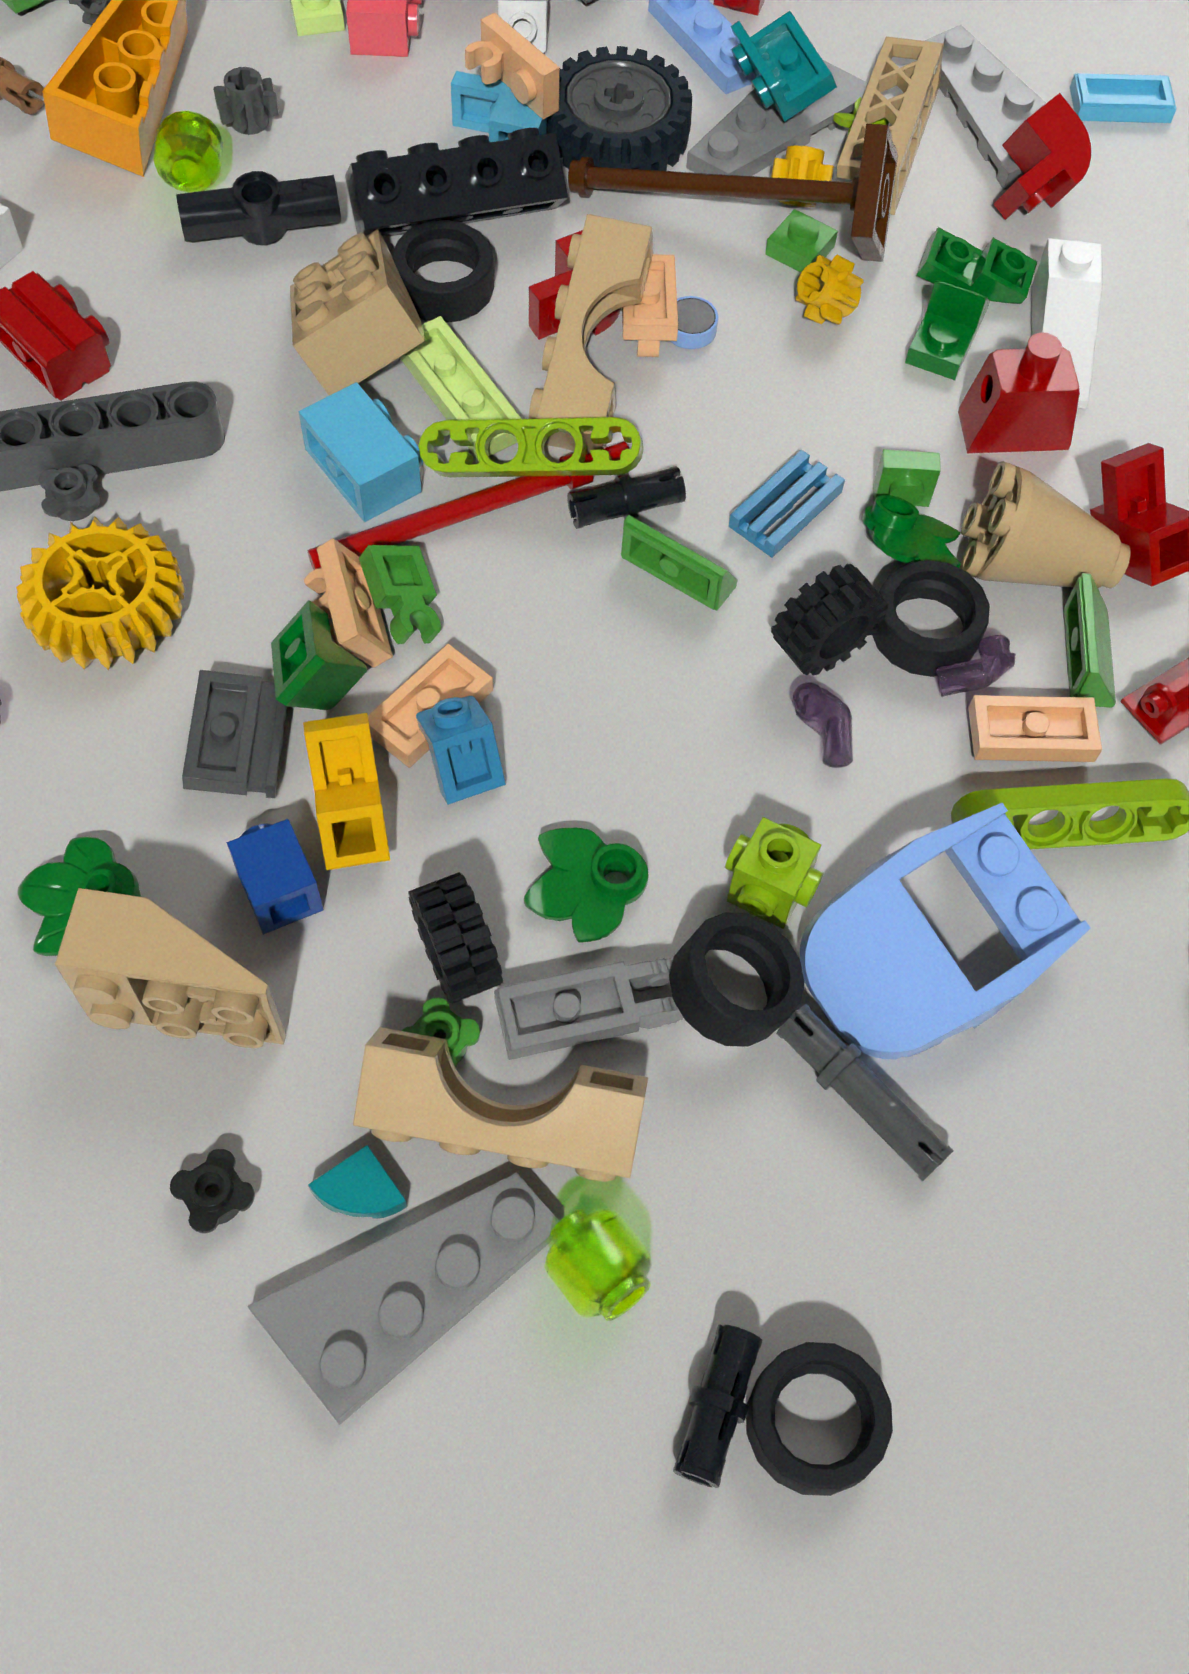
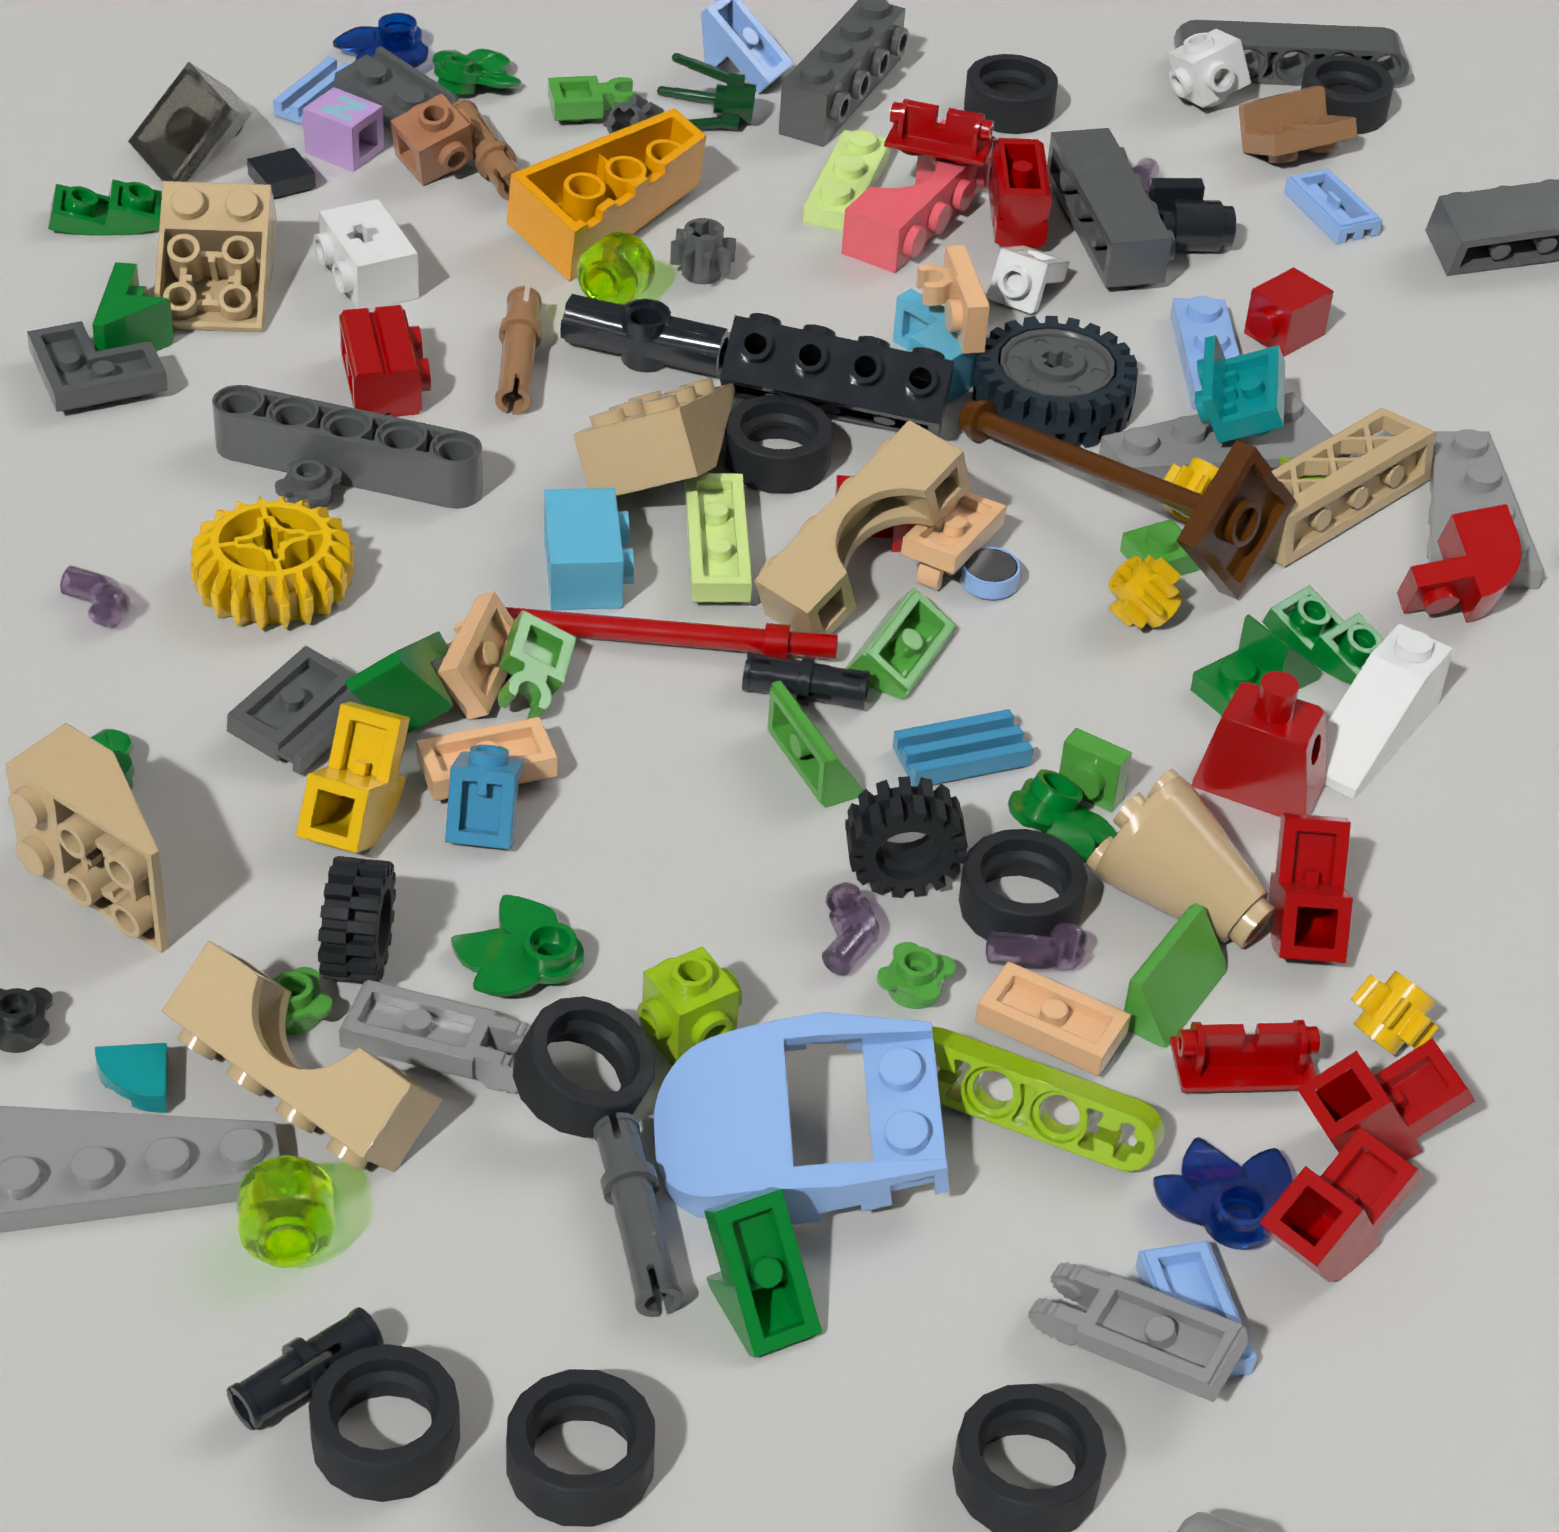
camera: 30 degrees right, 20 degrees down
(149, 254) = (520, 336): none -> medium nougat pin
(275, 875) = (248, 820): blue brick -> none
(531, 439) = (738, 589): lime beam -> none
(670, 424) = (903, 645): none -> bright green slope
(903, 754) = (915, 975): none -> bright green plate
(1004, 1100) = (761, 1272): none -> green slope
(1028, 1316) = (576, 1497): none -> black tyre

